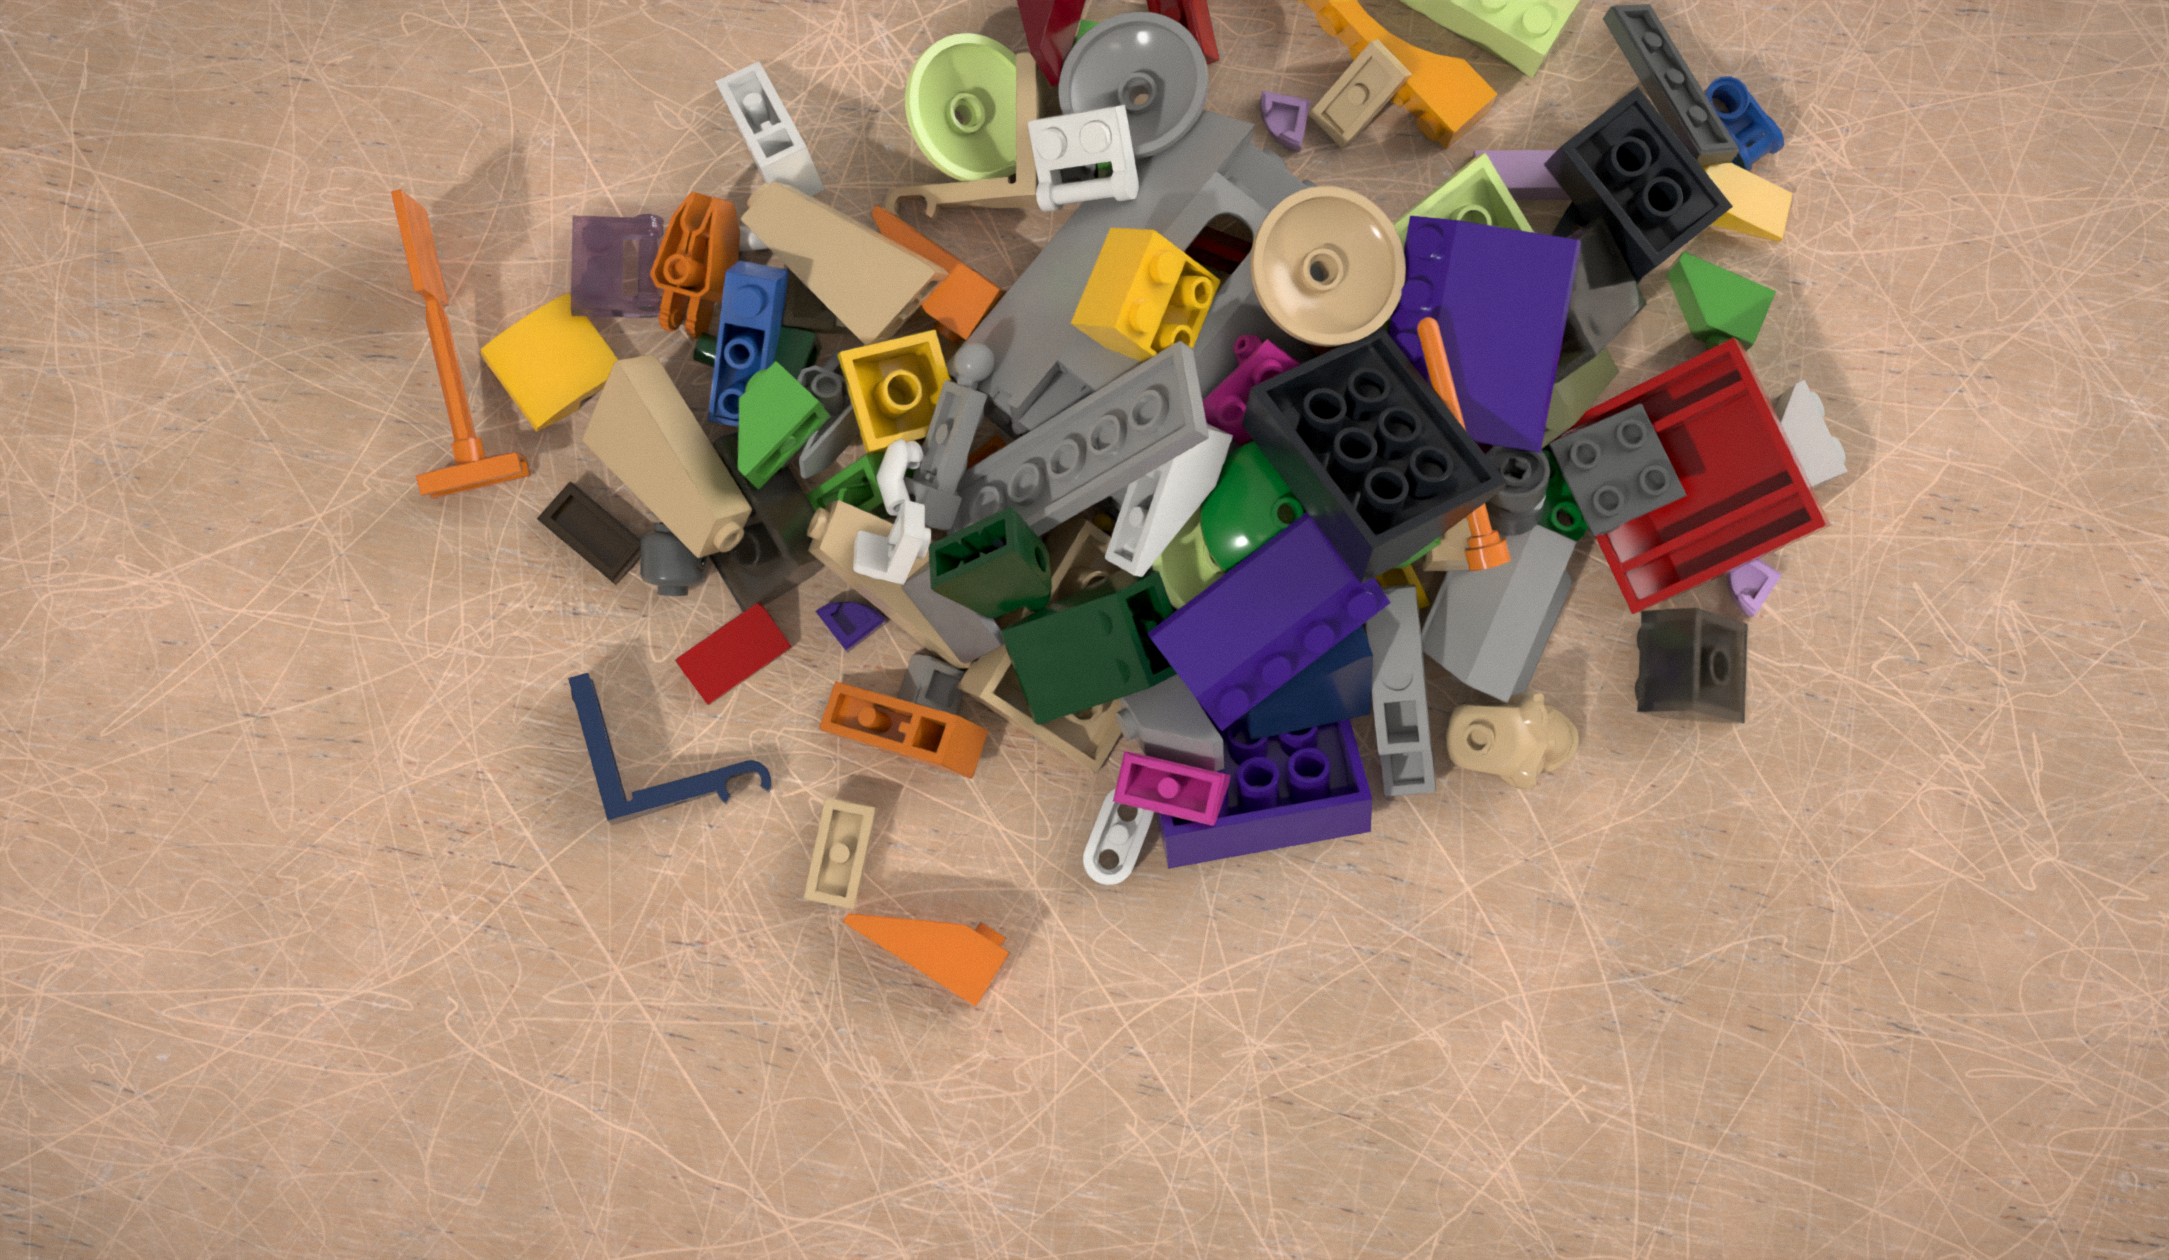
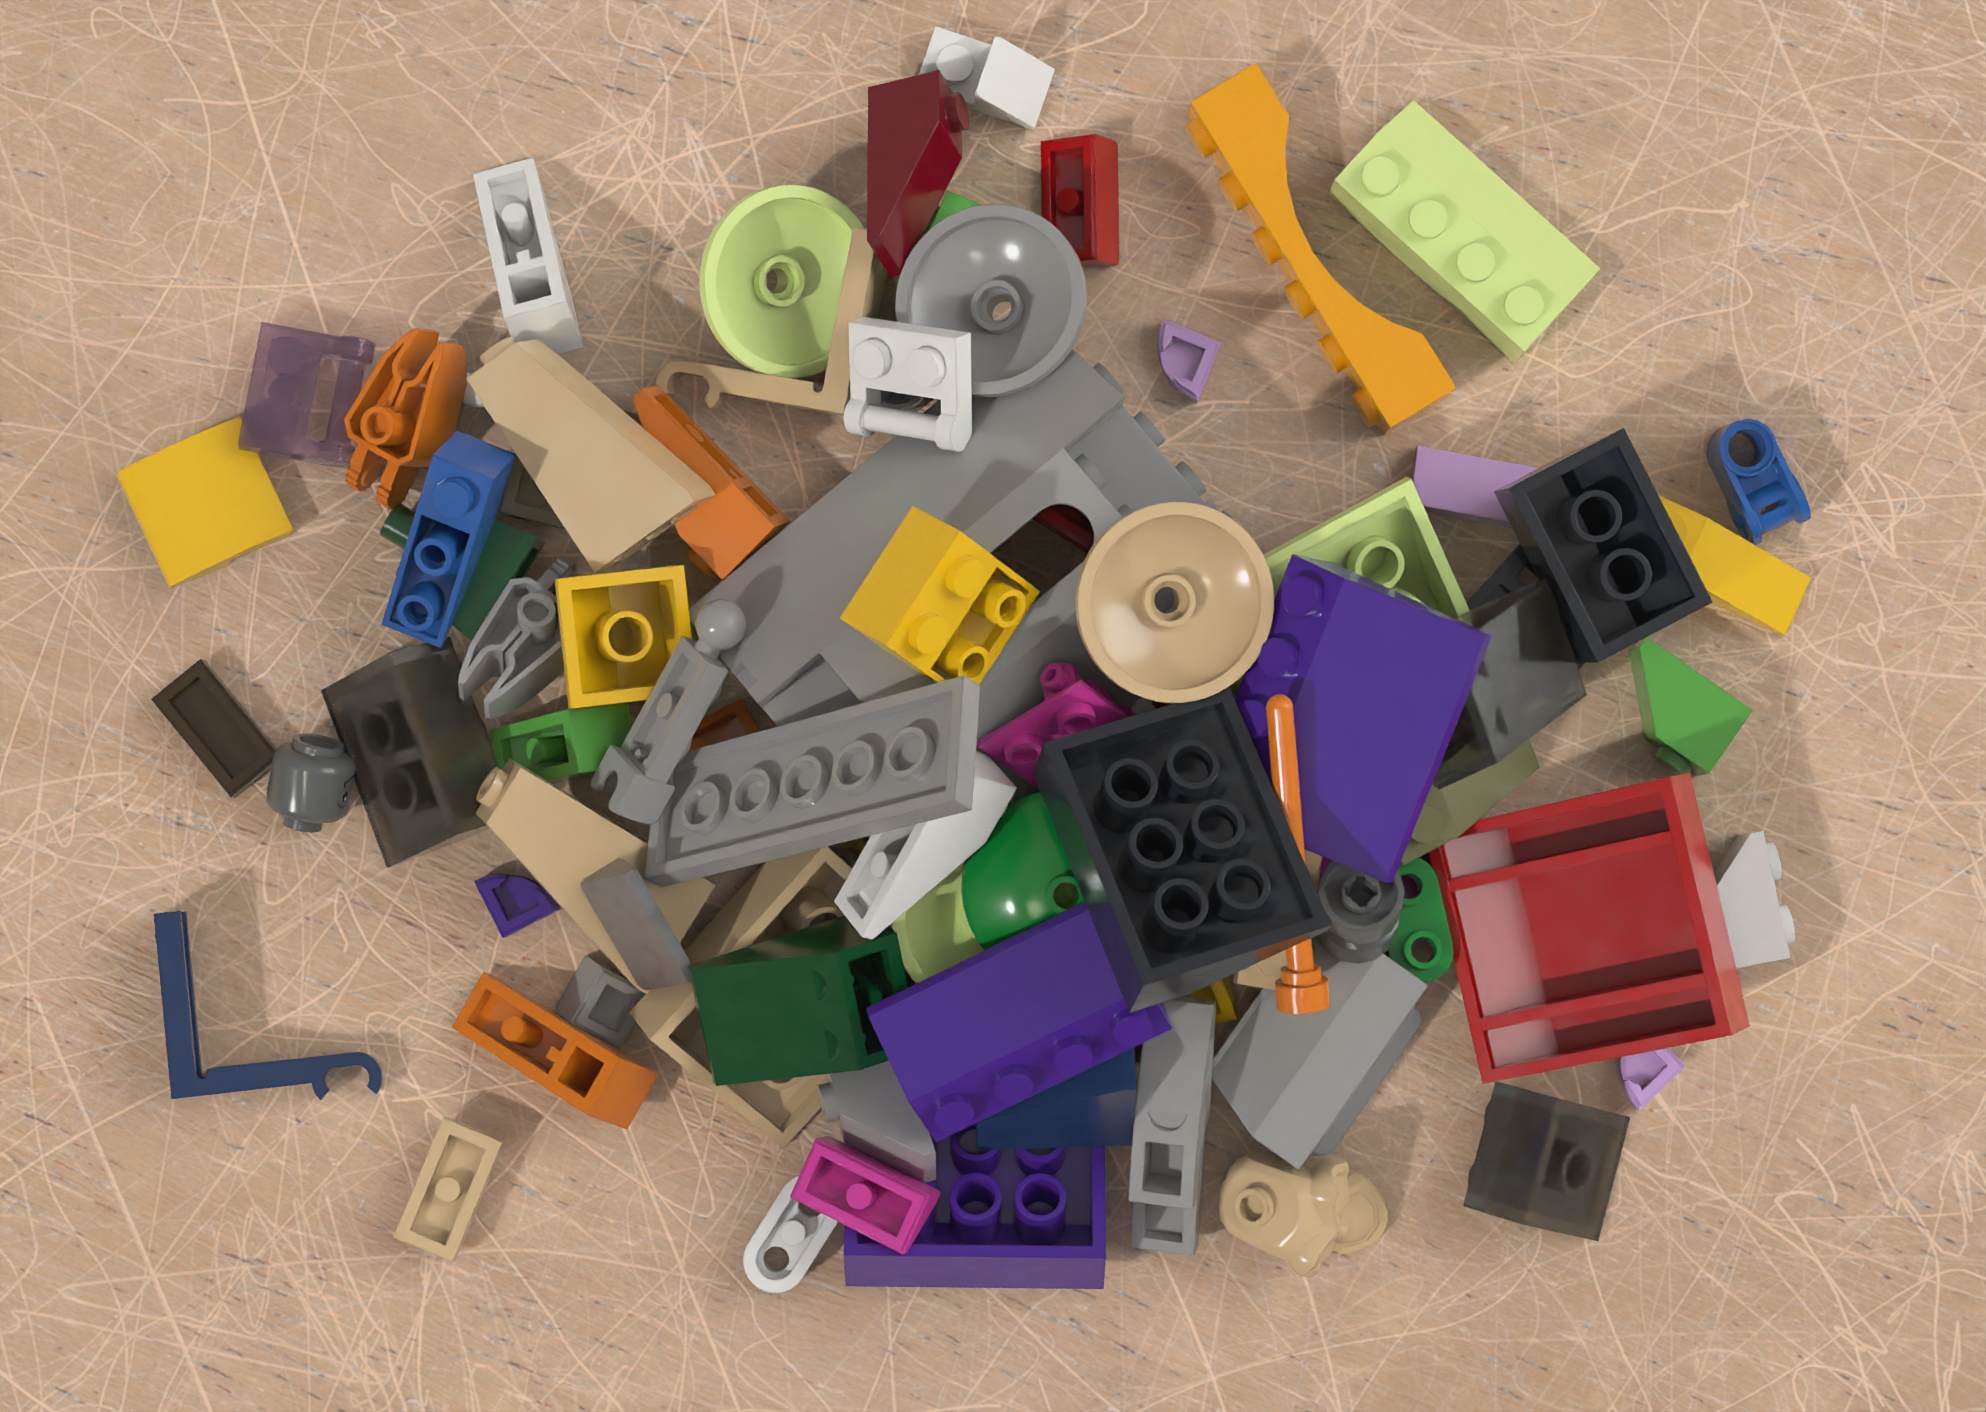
camera: 15 degrees right, 5 degrees up
(471, 466) = (67, 383): orange piece -> none
(665, 457) = (321, 663): tan slope -> none
(733, 653) = (364, 915): red slope -> none
(774, 422) = (460, 651): bright green slope -> none
(892, 471) = (594, 740): white arm -> none
(894, 555) = (576, 849): white bracket -> none
(945, 952) = (551, 1333): orange slope -> none
(992, 566) = (690, 891): dark green torso -> none
(1360, 93) = (1282, 352): tan plate -> none
(1617, 470) = (1495, 907): dark grey hinge -> none
(1670, 83) = (1679, 415): dark grey tile -> none

